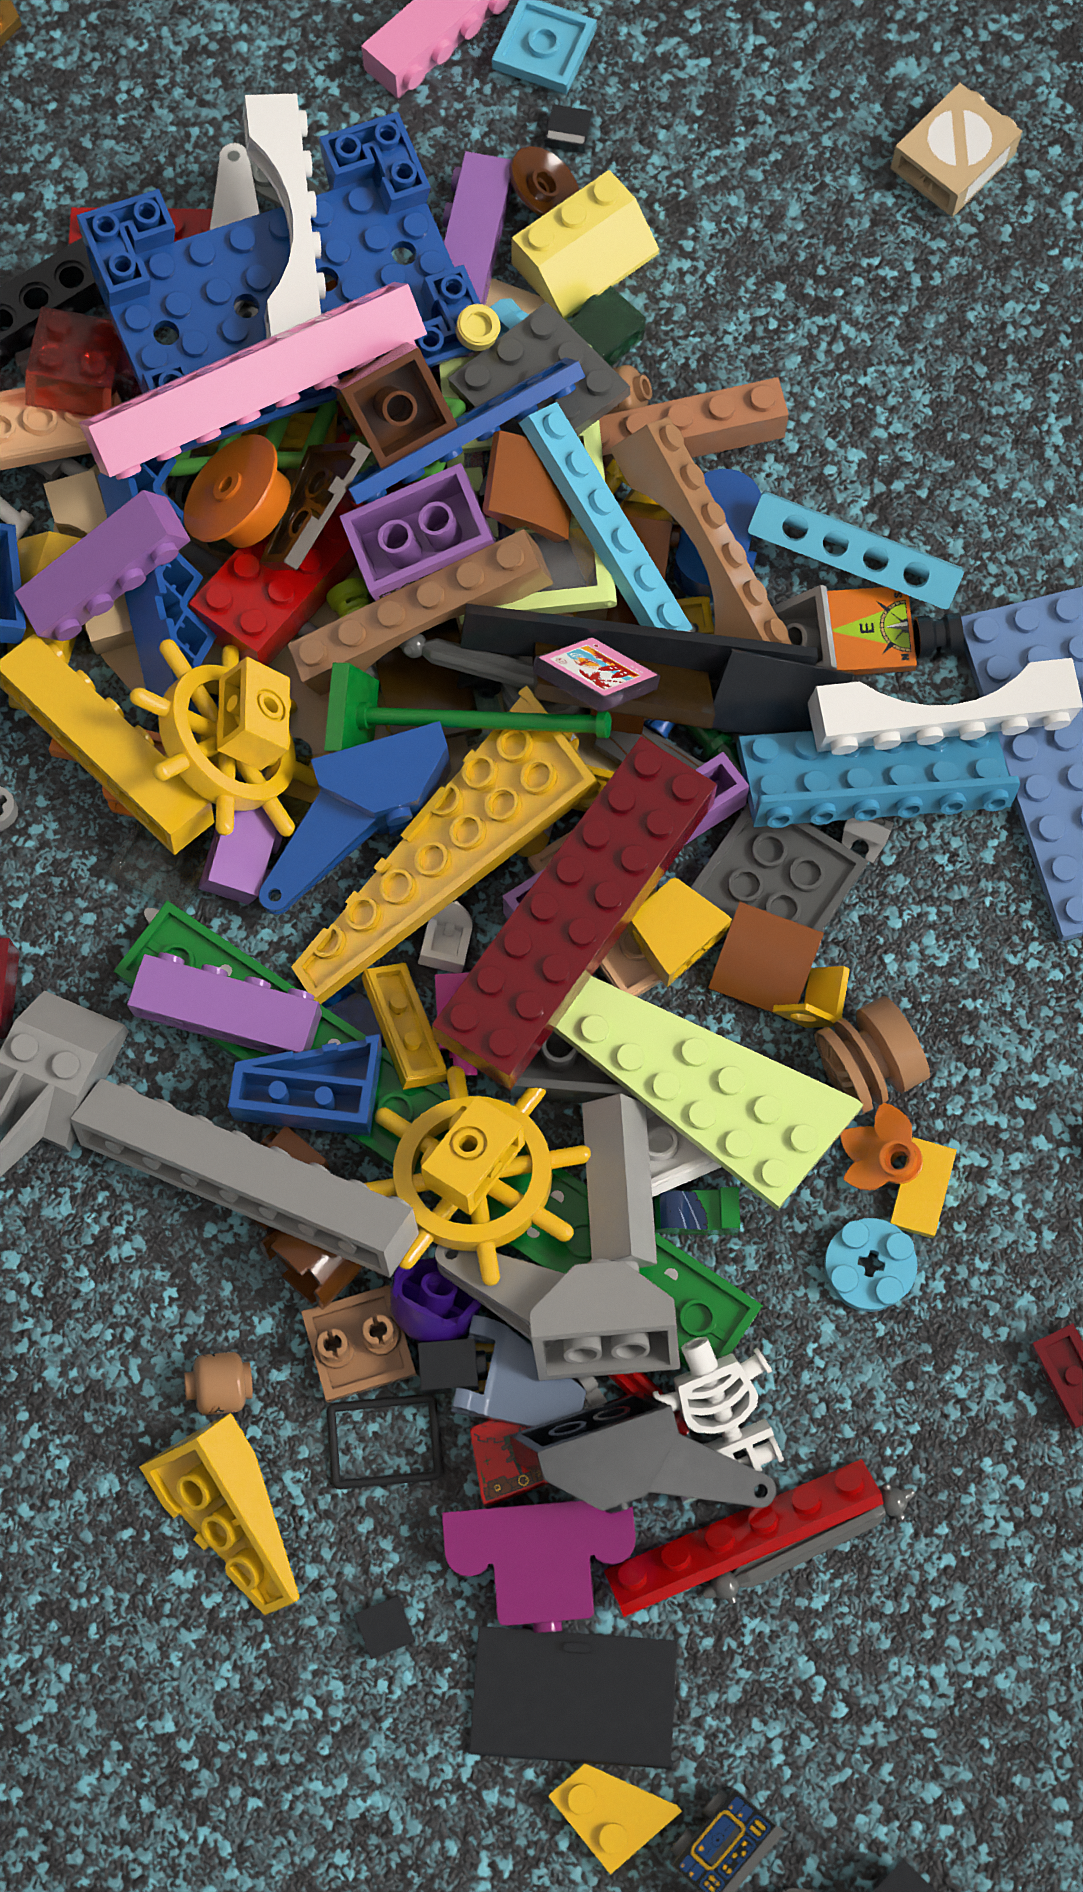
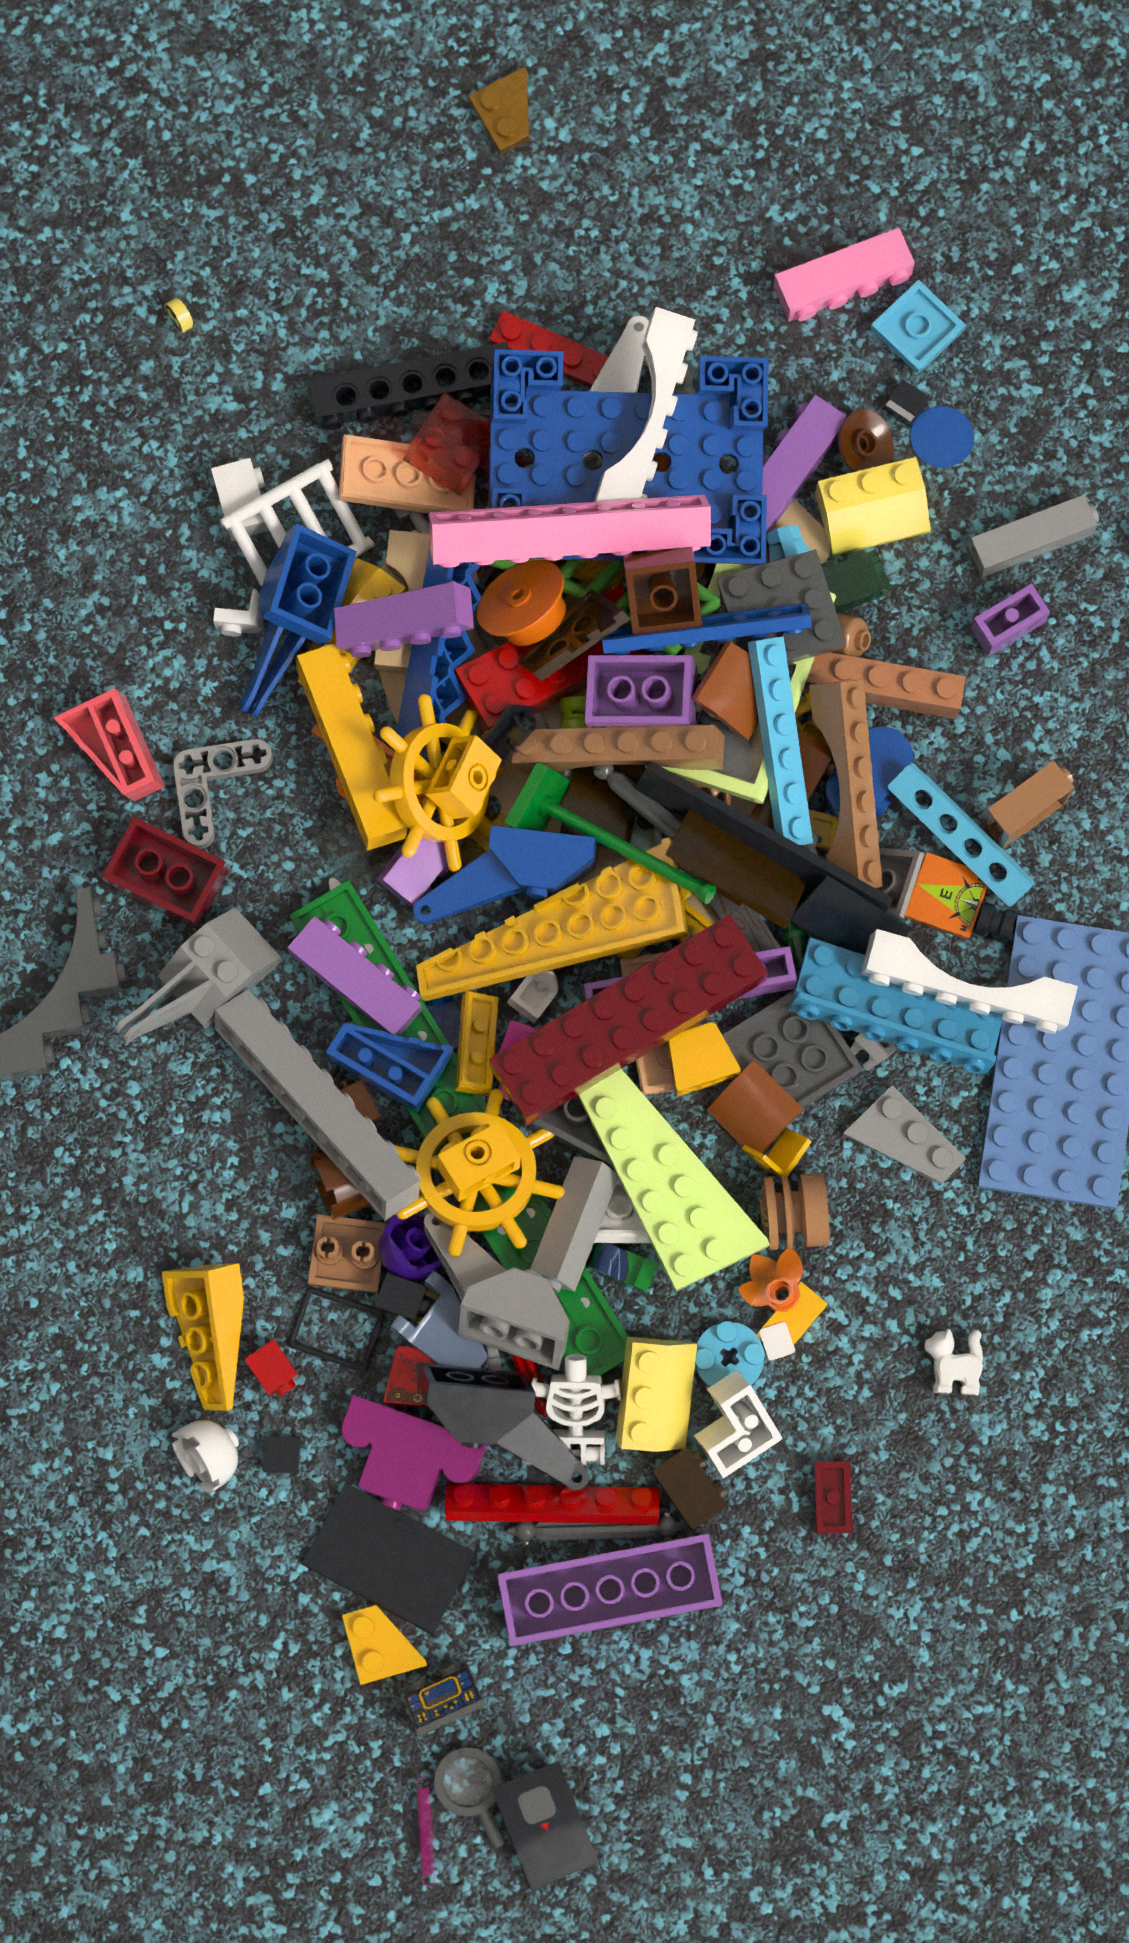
camera: 25 degrees right, 5 degrees up
(219, 1383) = (240, 1238): medium nougat head -> none
(286, 634) = (515, 725): none -> black hinge
(292, 1666) = (207, 1451): none -> white cylinder
(329, 1525) = (273, 1369): none -> red brick
(477, 327) = (754, 550): light yellow tile -> none
(596, 674) = (717, 855): tile -> none
(624, 147) = (942, 436): none -> blue sticker
(775, 207) = (1033, 535): none -> light grey brick
(795, 302) = (1009, 620): none -> medium lavender brick
(807, 1347) = (655, 1394): none -> light yellow slope
(864, 1612) = (609, 1590): none -> medium lavender brick
(901, 1442) = (690, 1488): none -> dark brown brick
(916, 484) = (1028, 804): none -> medium nougat window
(919, 1219) = (777, 1341): none -> white sticker
(930, 1343) = (741, 1431): none -> white brick
(951, 917) = (905, 1135): none -> light grey wing

